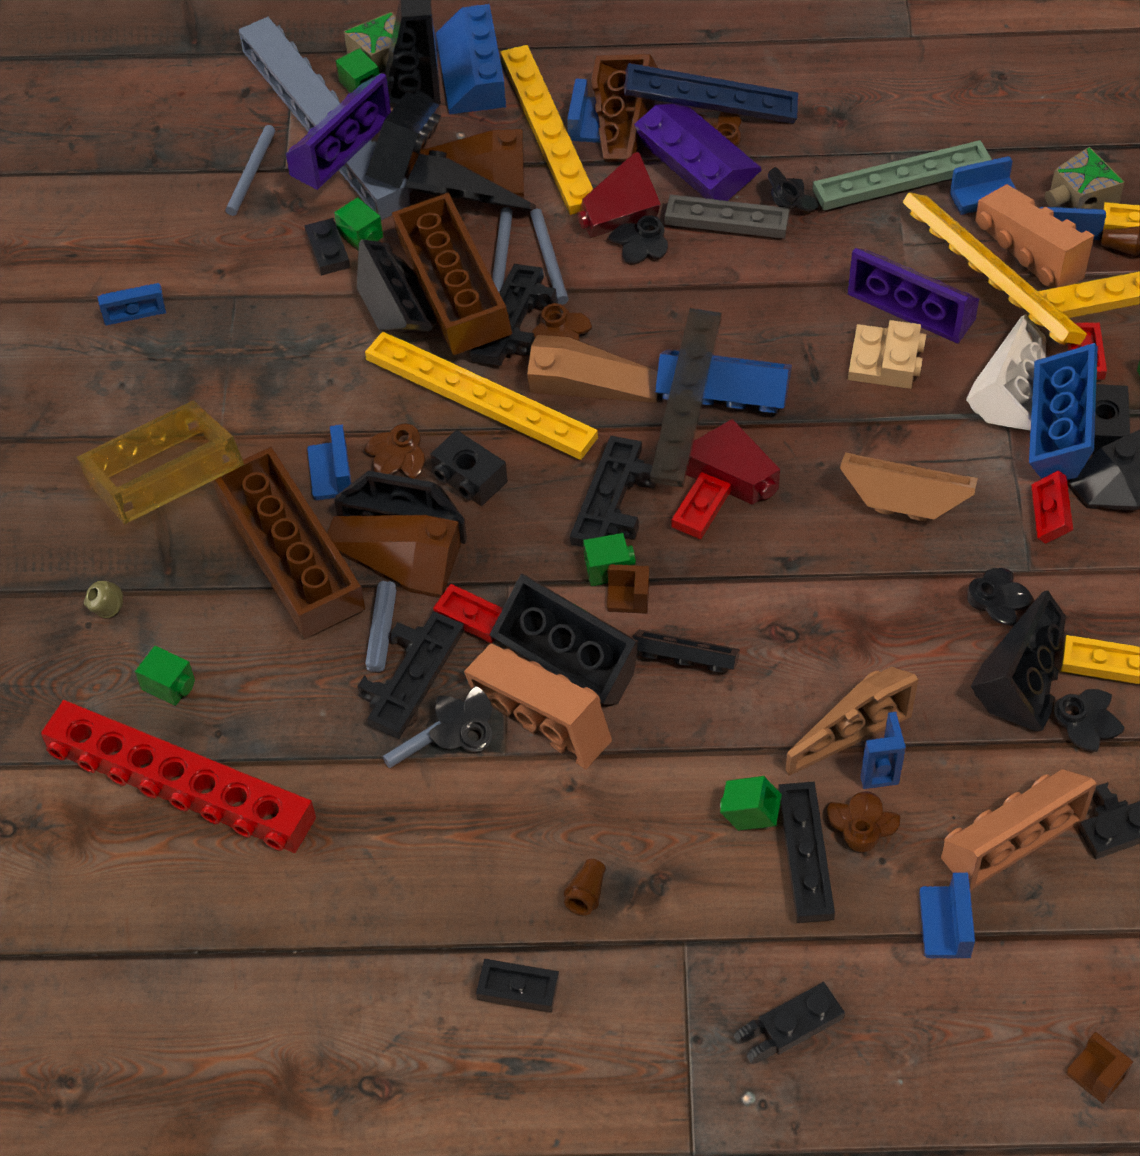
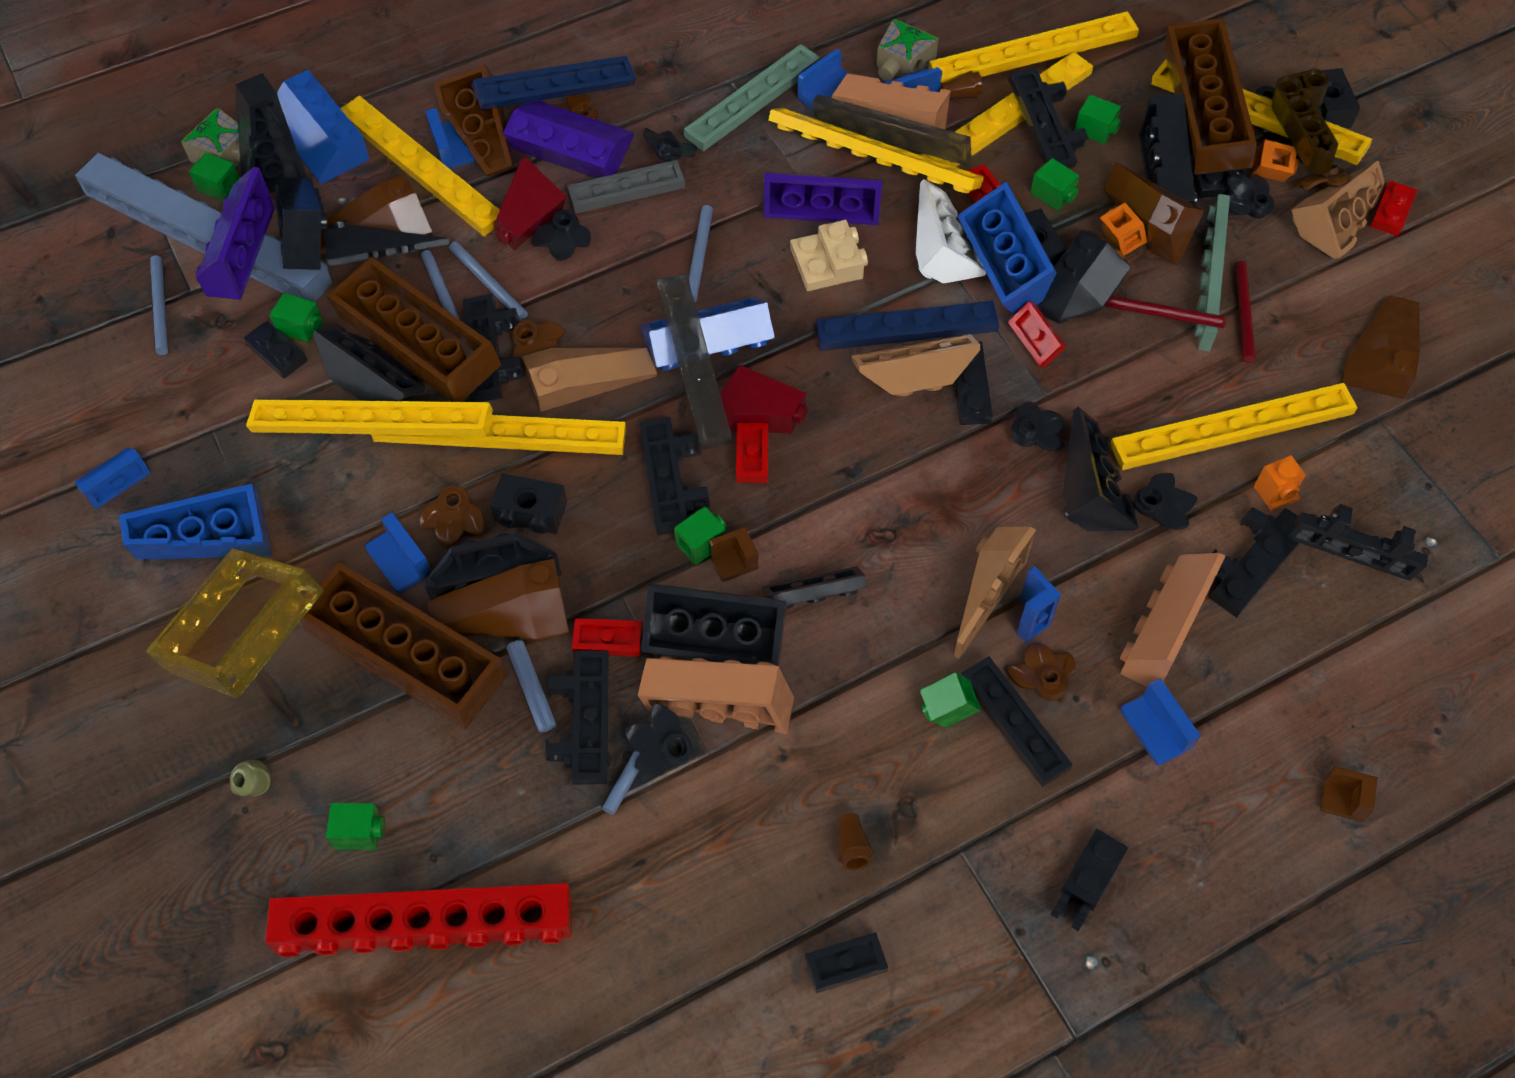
camera: 30 degrees left, 5 degrees up
(178, 372) = (199, 527): none -> blue wedge
(372, 335) = (370, 417): none -> yellow plate
(761, 305) = (700, 249): none -> sand blue bar
(927, 449) = (907, 325): none -> dark blue plate
(957, 532) = (973, 392): none -> black plate
(1022, 256) = (894, 129): none -> clear smoke plate

